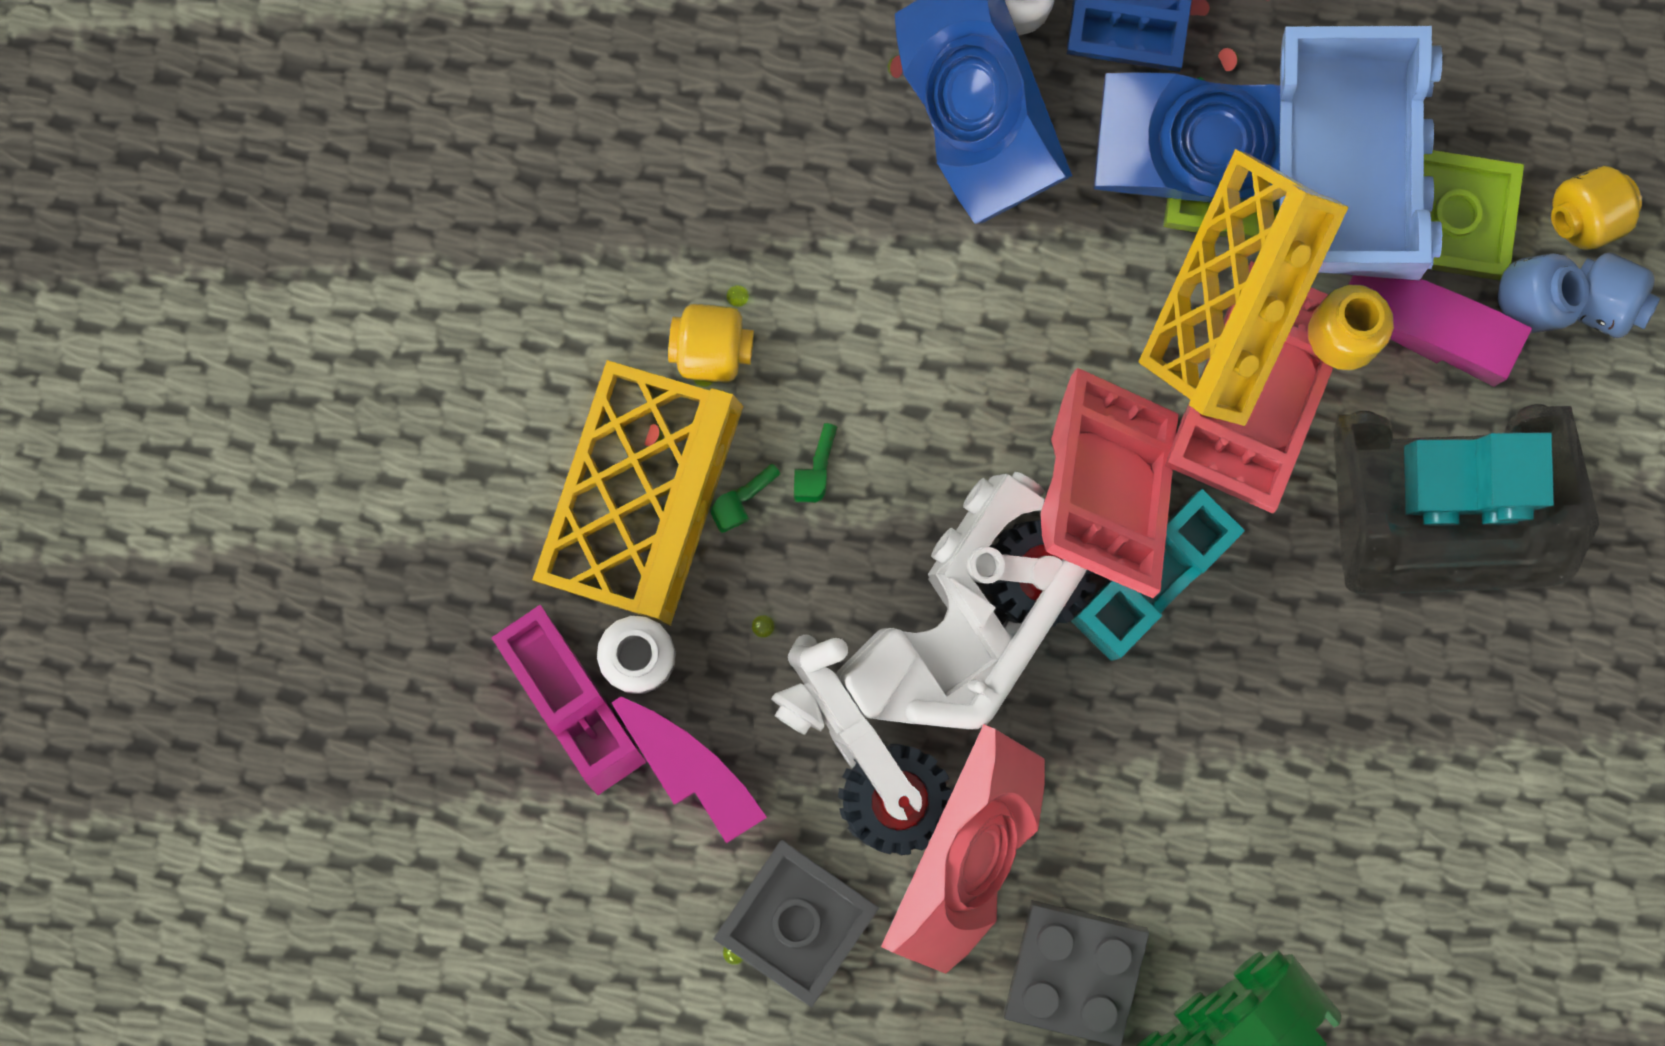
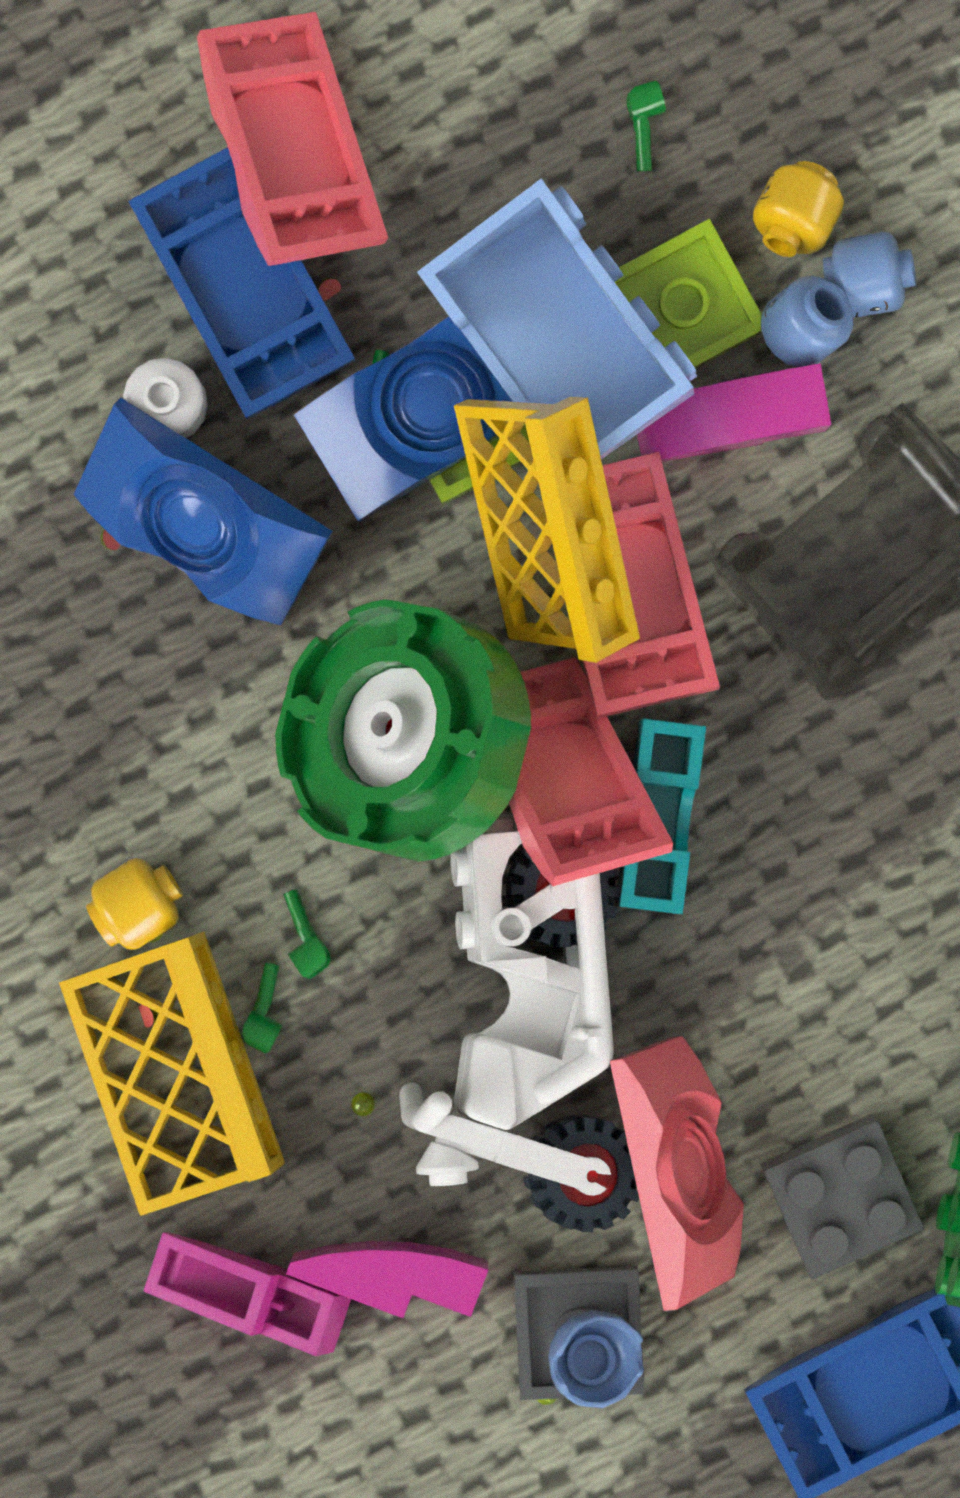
camera: 25 degrees left, 5 degrees up
(636, 654) = (276, 1216): white head -> none
(737, 296) = (126, 840): clear neon green piece -> none
(798, 947) = (595, 1358): none -> medium blue hair
(1015, 360) = (404, 731): none -> green piece
(1228, 58) = (389, 314): coral piece -> none
(1350, 327) = (666, 482): yellow head -> none
(1488, 476) = (874, 520): teal brick -> none
(1534, 46) = (642, 103): none -> green hand

